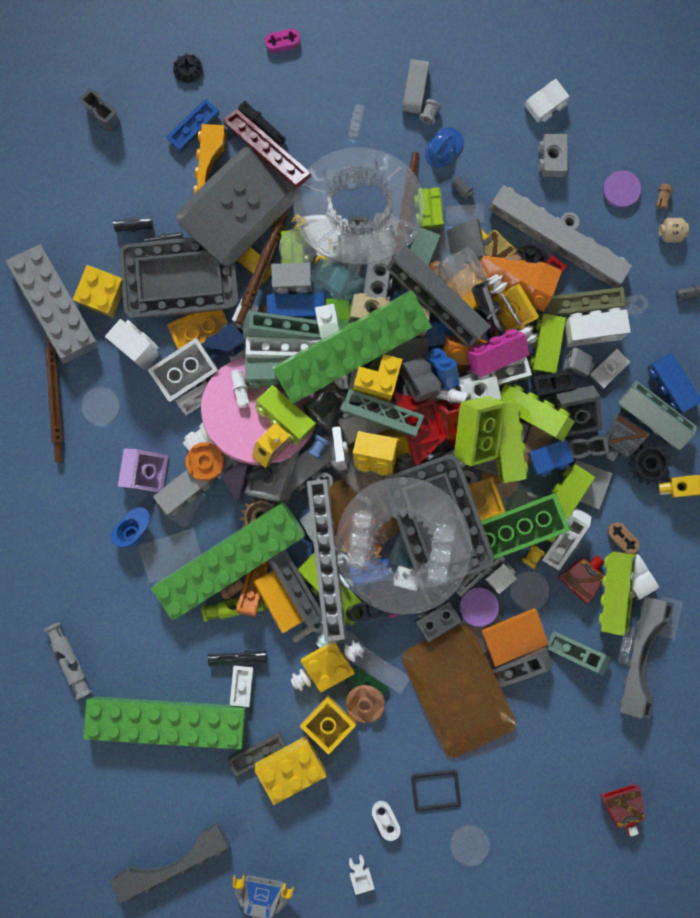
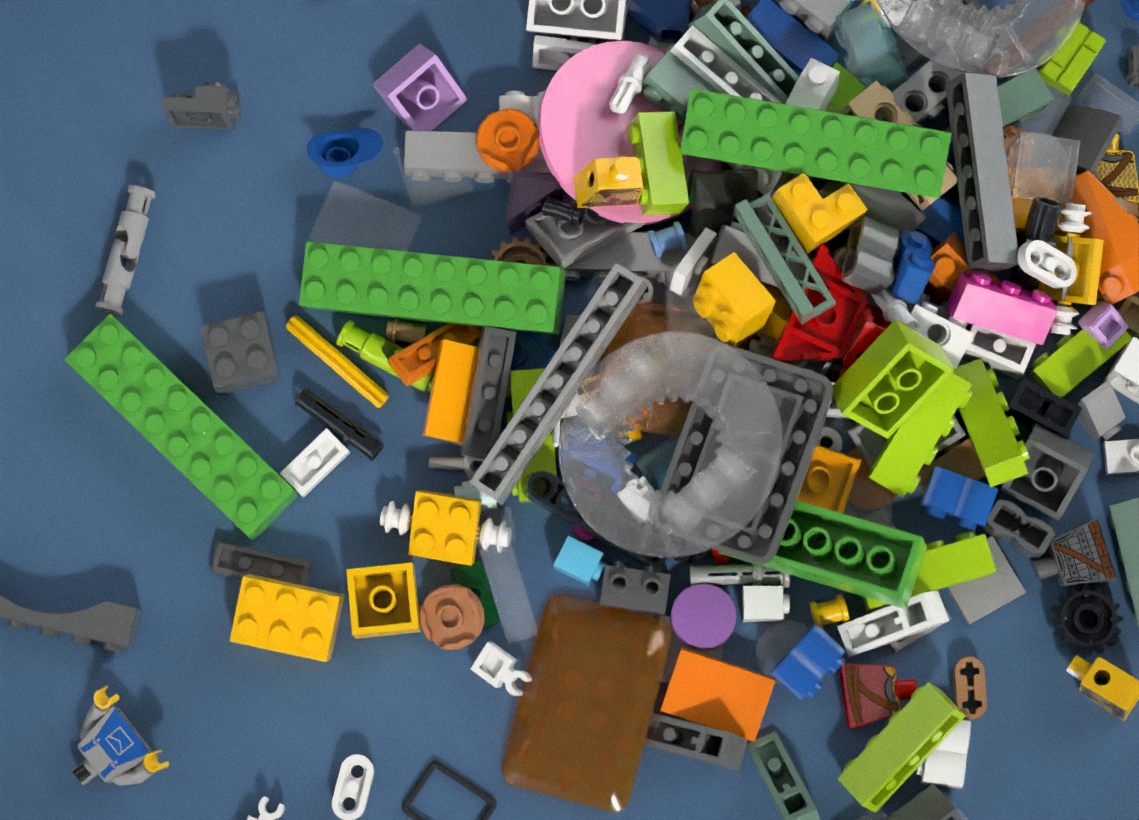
camera: 40 degrees right, 5 degrees down
(49, 561) = (211, 108): none -> dark grey plate
(163, 664) = (240, 353): none -> dark grey brick
(211, 629) = (337, 361): none -> yellow axle
(402, 629) = (580, 561): none -> medium azure brick
(405, 710) = (497, 667): none -> white plate
(498, 316) = (1044, 261): none -> white plate
(544, 589) = (808, 662): none -> blue brick
(548, 322) = (1103, 324): none -> lavender slope

